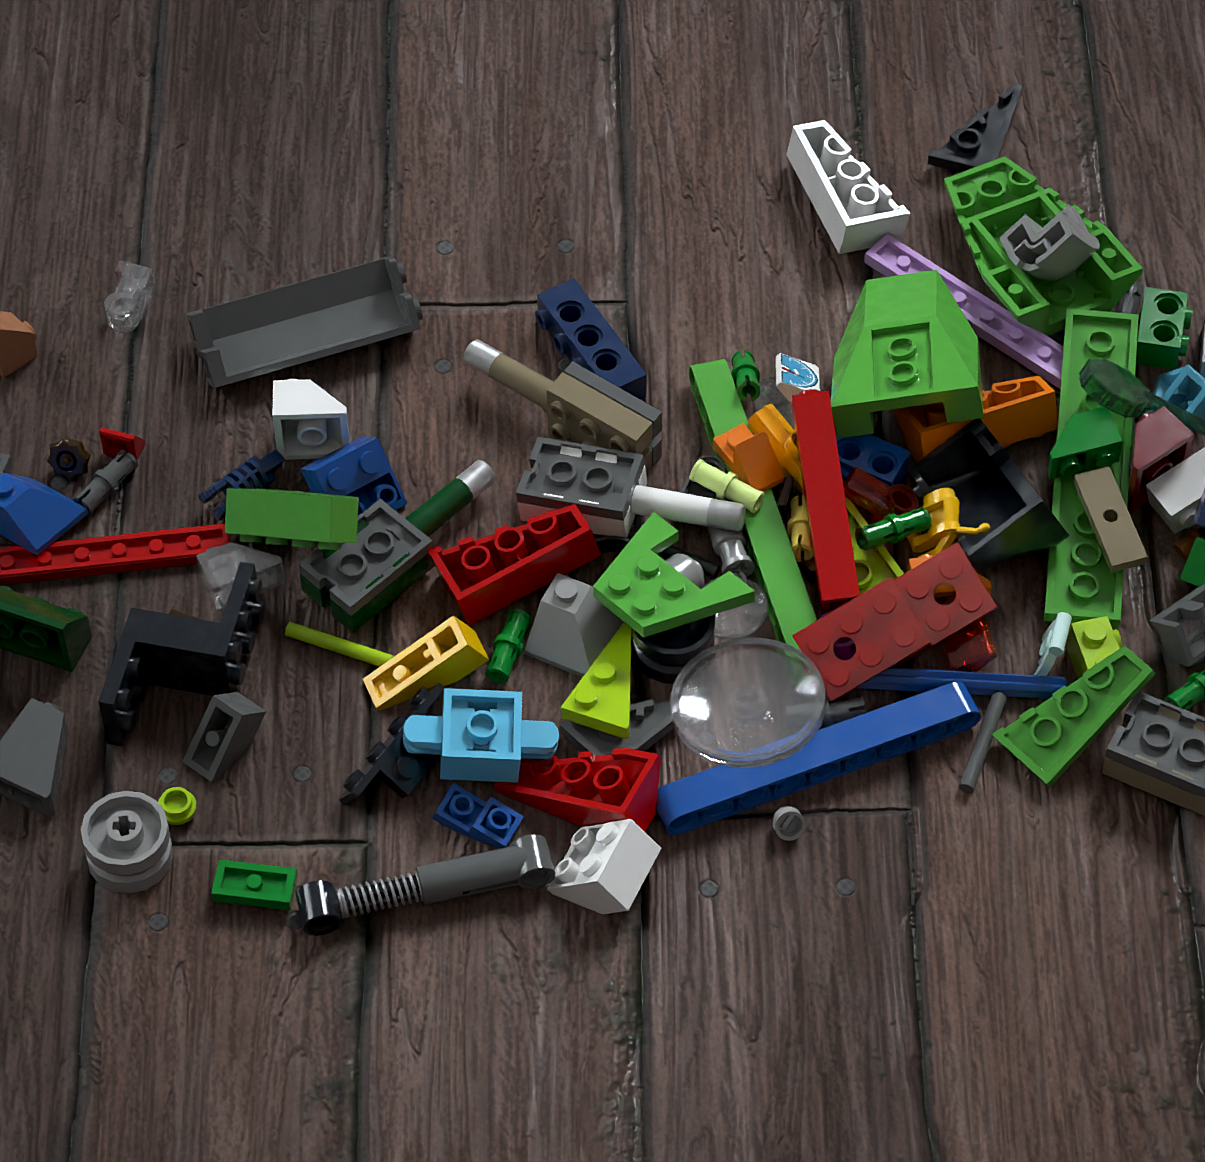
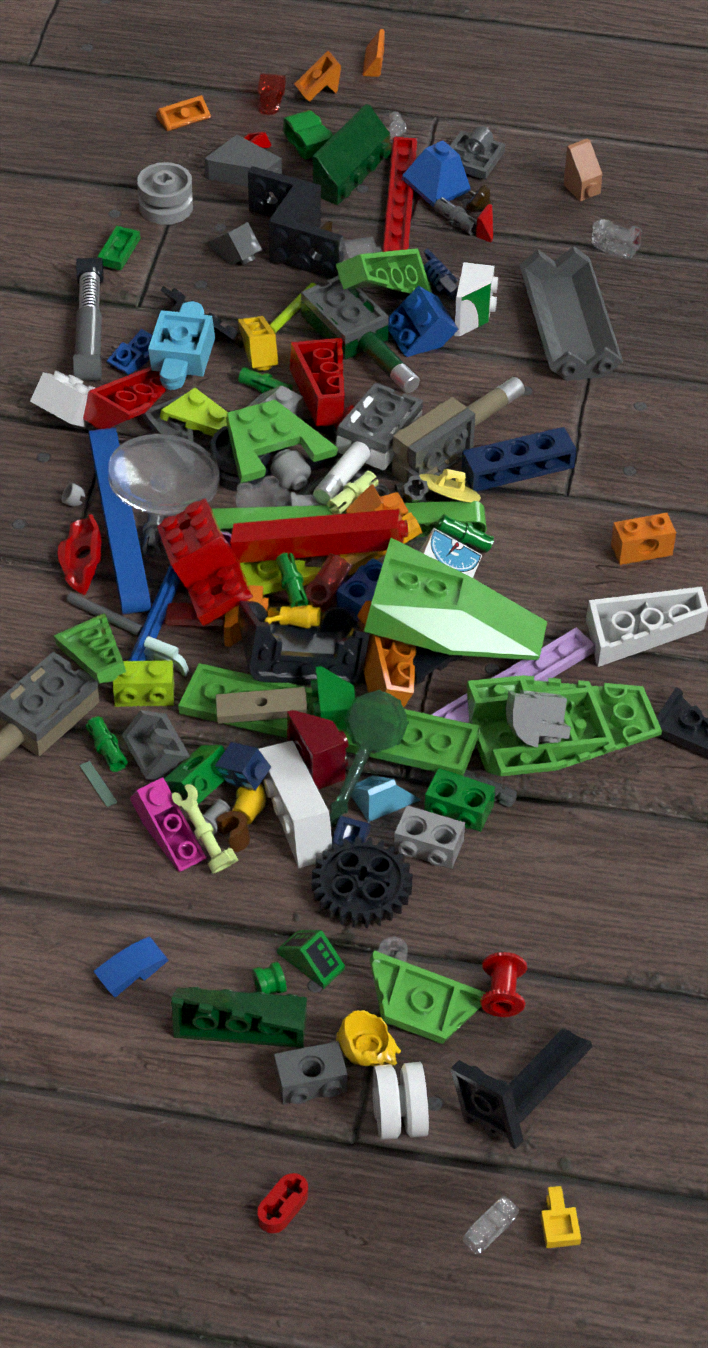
camera: 100 degrees right, 5 degrees down
(178, 805) = (190, 222): lime plate -> none
(677, 397) = (450, 488): none -> light yellow shield
(686, 440) = (412, 490): none -> dark grey piece
(700, 207) = (643, 538): none -> orange brick
(919, 782) = (82, 535): none -> red piece

